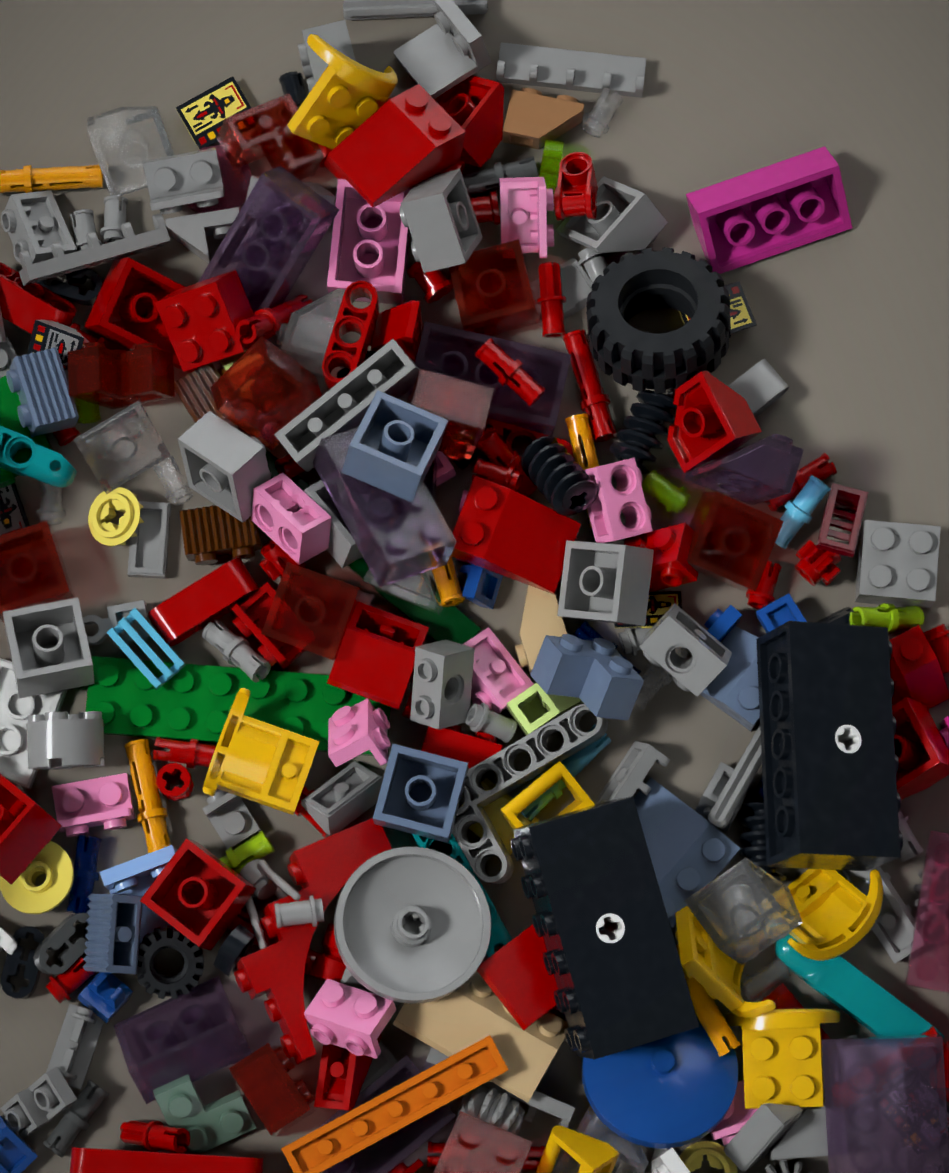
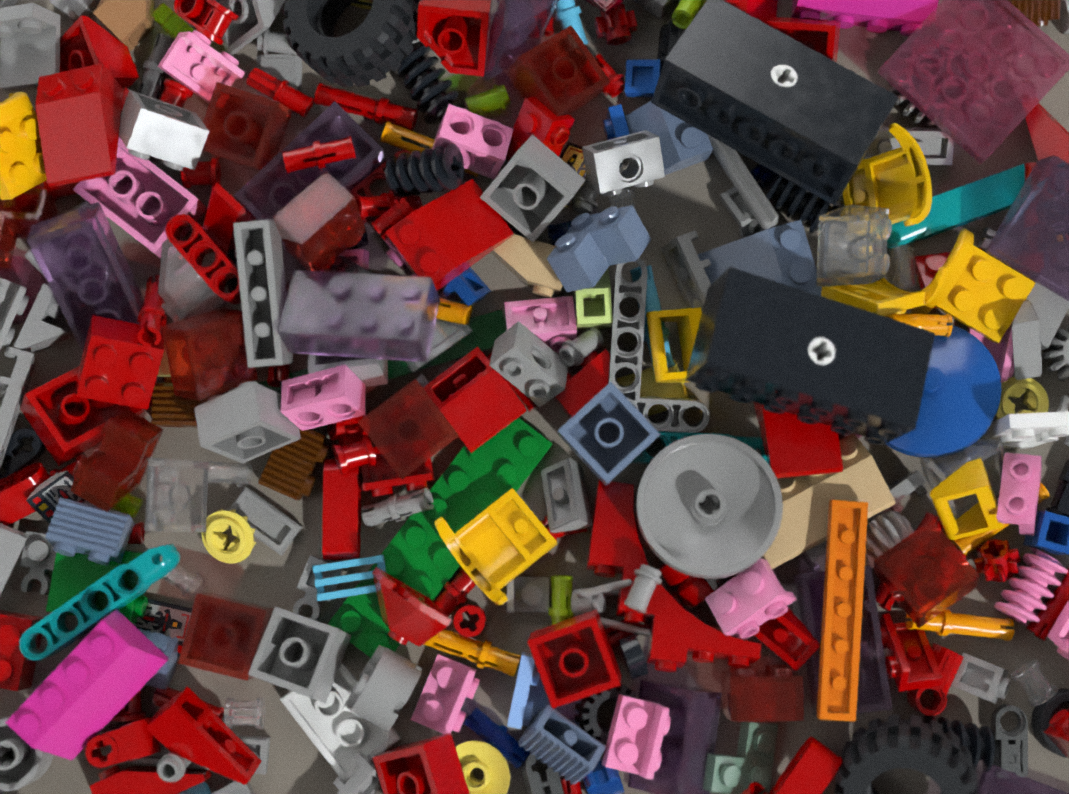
camera: 65 degrees left, 5 degrees up
(147, 716) = (407, 611): none -> red slope
(162, 996) = (636, 736): none -> bright pink bracket
(258, 580) = (354, 454): none -> red bush
(356, 731) = (527, 453): bright pink bracket -> none
(394, 446) = (324, 275): sand blue brick -> none

